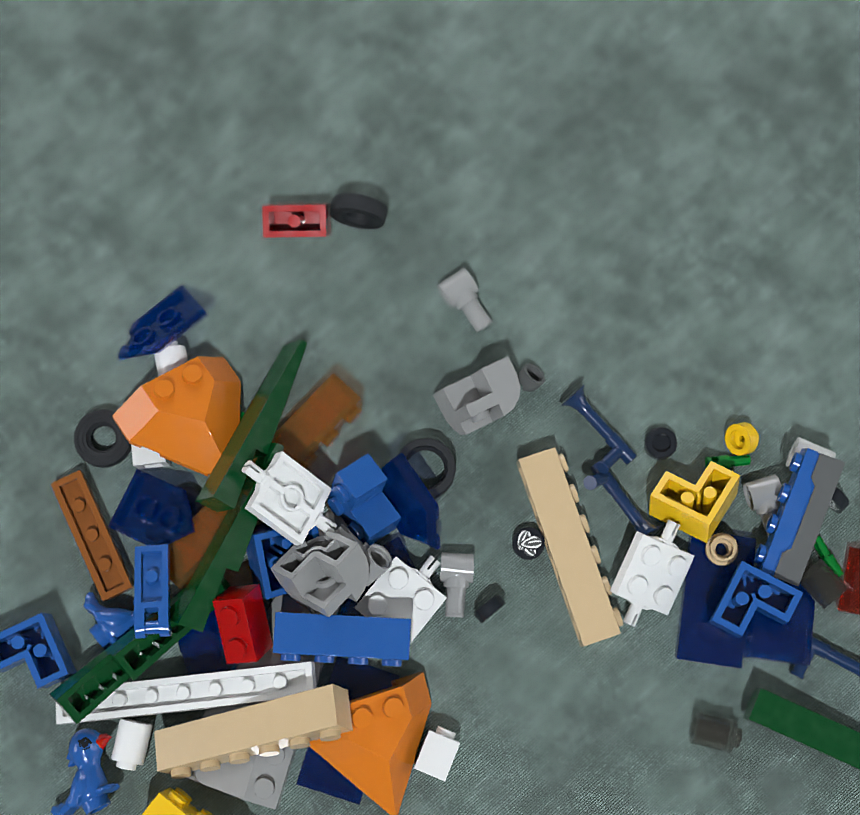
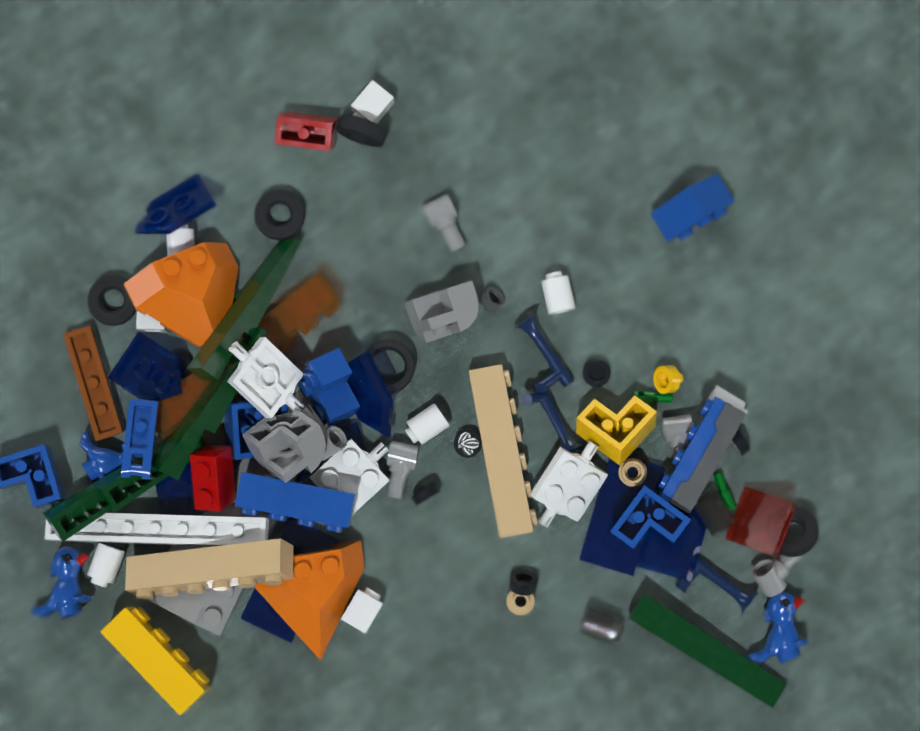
camera: 10 degrees right, 5 degrees up
(275, 298) = (274, 198): none -> black tyre
(367, 178) = (372, 103): none -> white brick
(478, 528) = (426, 424): none -> white brick
(604, 360) = (557, 293): none -> white brick
(606, 716) = (530, 601): none -> tan plate
(617, 694) = (523, 582): none -> black tile
(742, 240) = (692, 207): none -> blue brick

